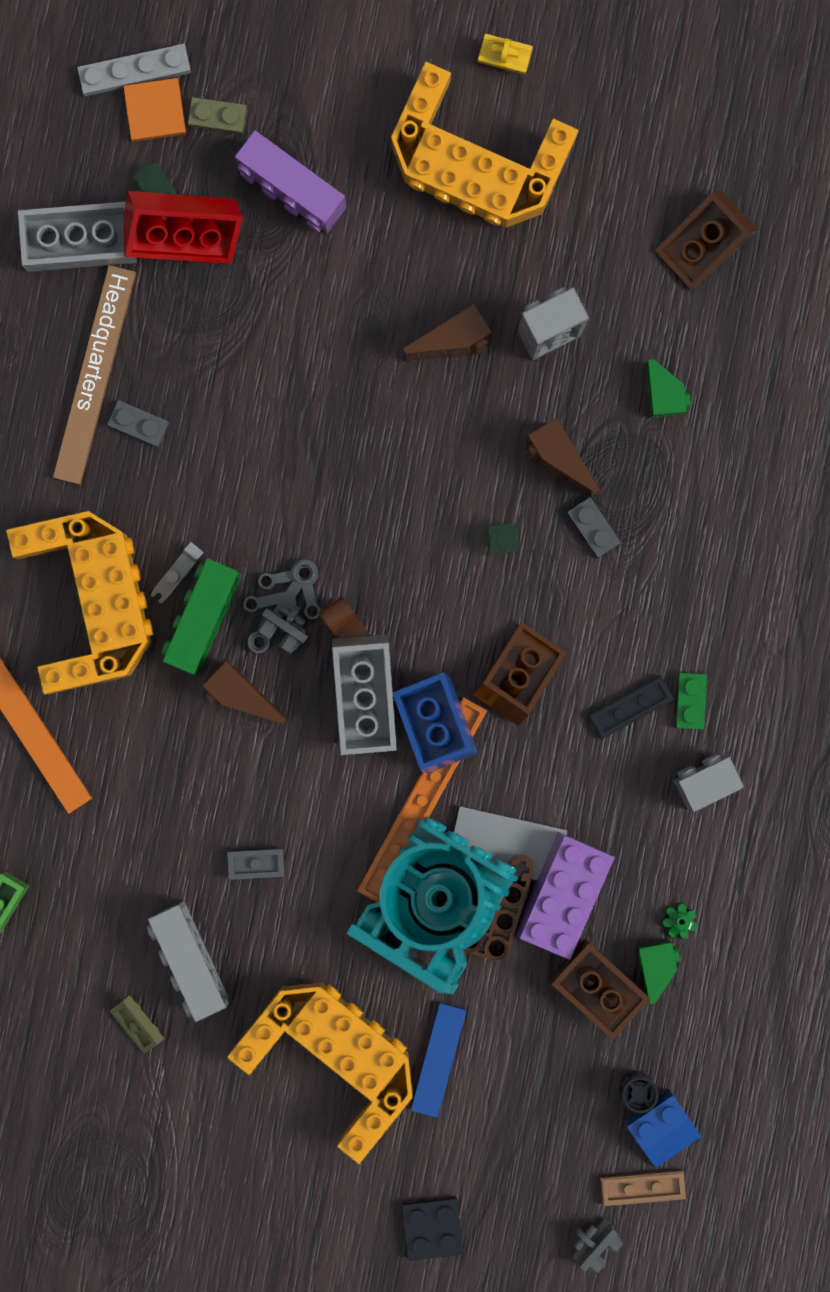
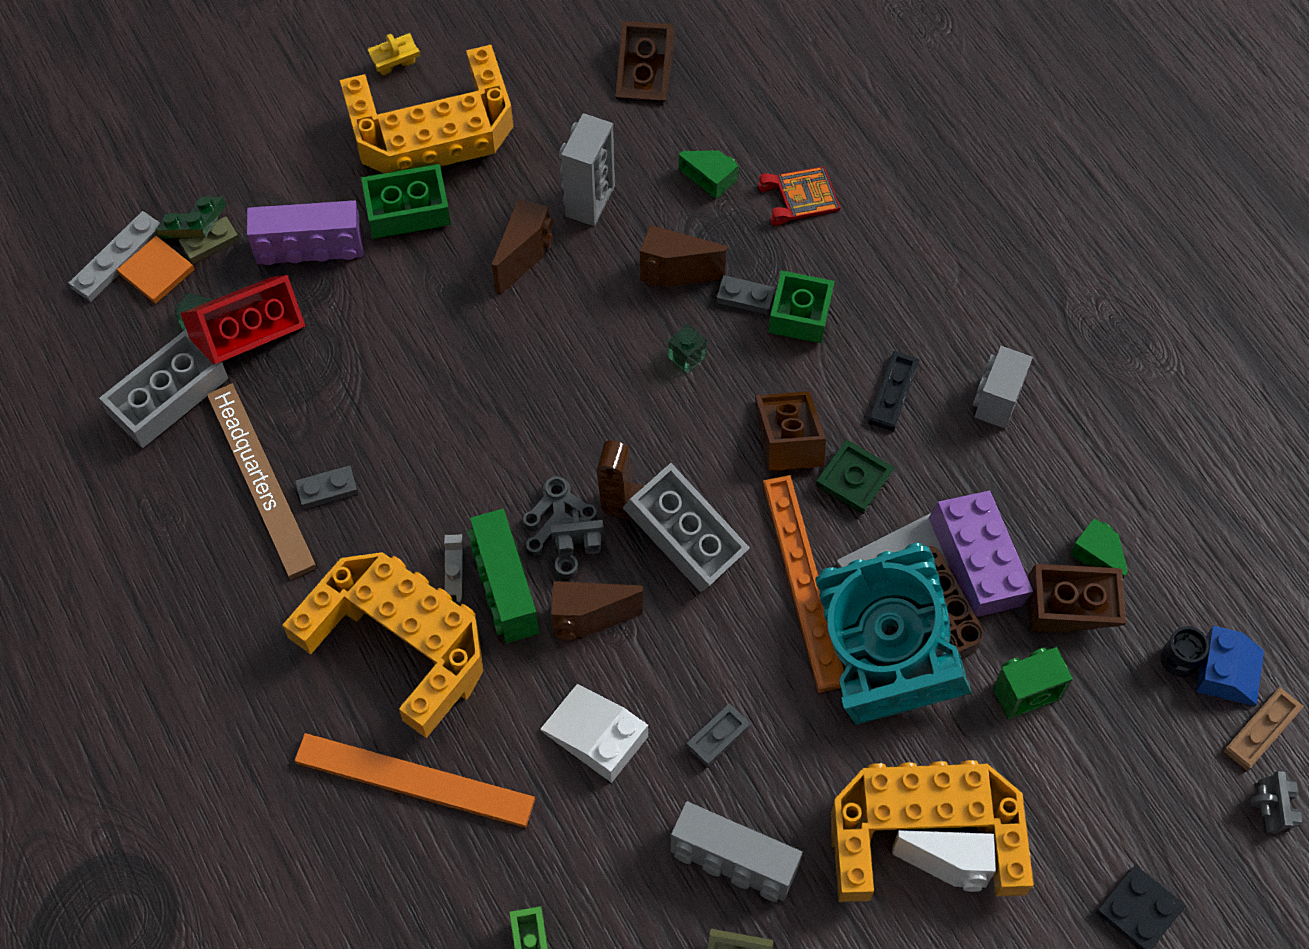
camera: 40 degrees left, 25 degrees down
(172, 786) = (596, 731): none -> white slope
(213, 94) = (192, 224): none -> dark green plate
(335, 1096) = (956, 858): none -> white slope
(395, 216) = (406, 201): none -> green brick
(435, 723) = (762, 505): blue brick -> none
(438, 1059) = (1009, 763): blue tile -> none
(504, 1022) = (1032, 682): none -> green brick
(533, 753) = (855, 476): none -> dark green plate
(621, 581) = (801, 306): none -> green brick
(674, 918) = (1082, 508): green plant -> none
(691, 701) = (932, 352): green plate -> none
(724, 475) = (803, 194): none -> flag

